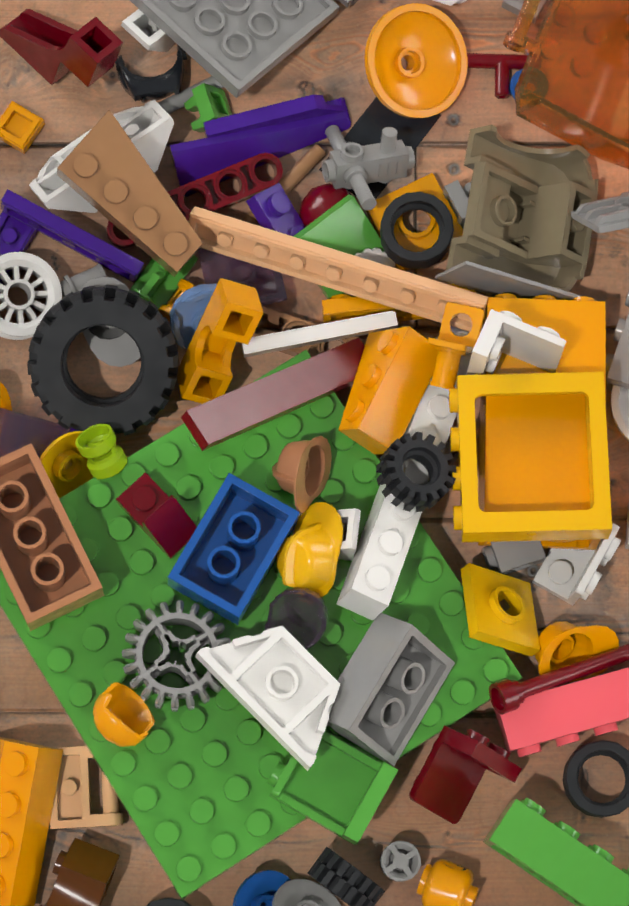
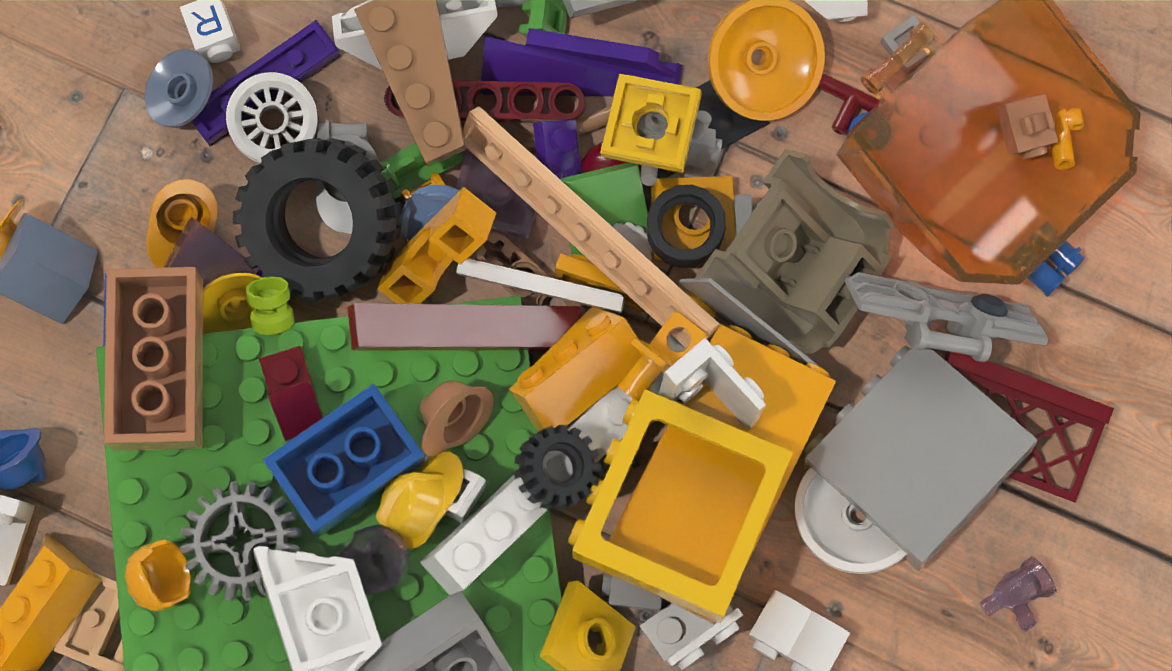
camera: 30 degrees right, 0 degrees up
(71, 236) = (350, 83): dark purple tile -> none
(331, 136) = (641, 96): none -> yellow piece

